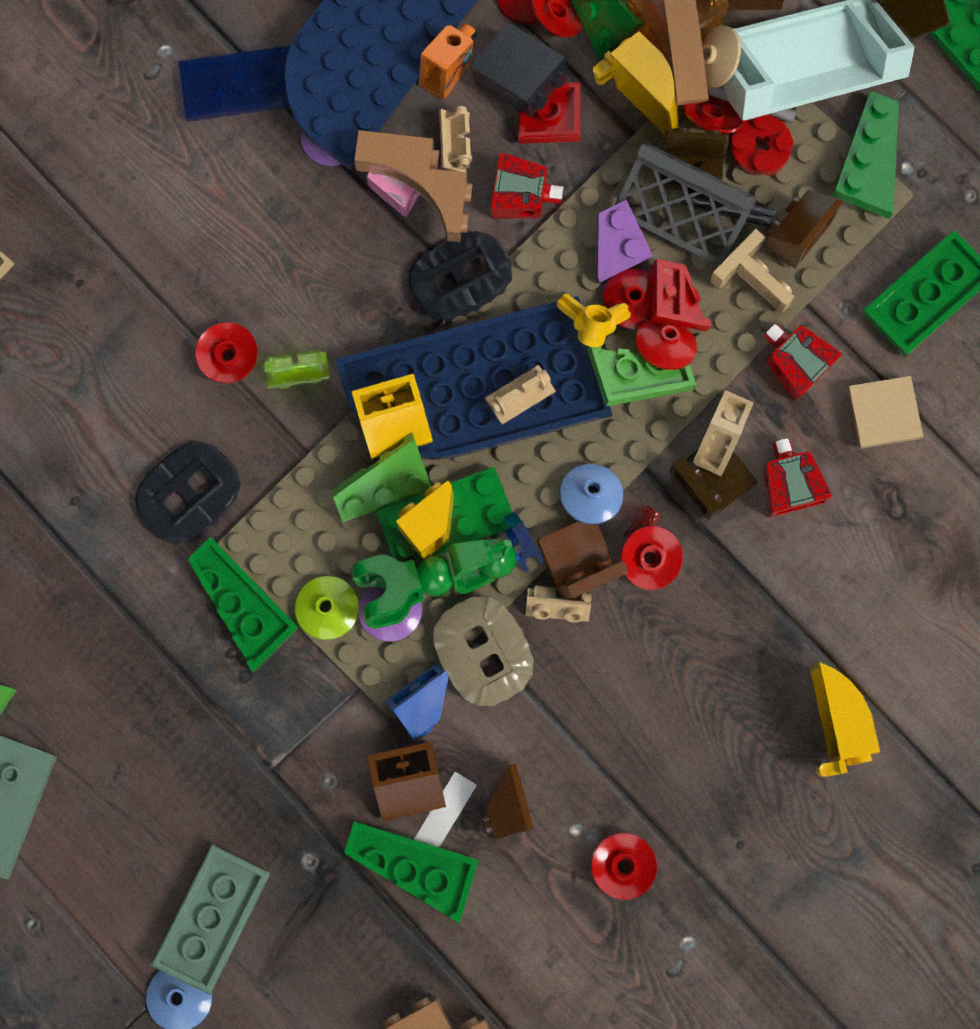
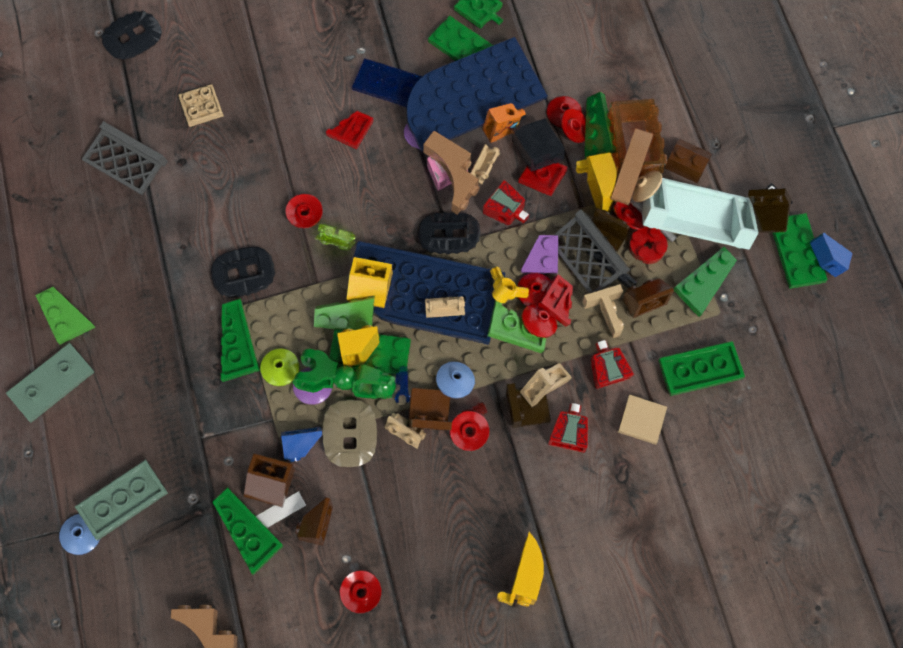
camera: 20 degrees right, 10 degrees down
(225, 187) = (351, 130): none -> red wing

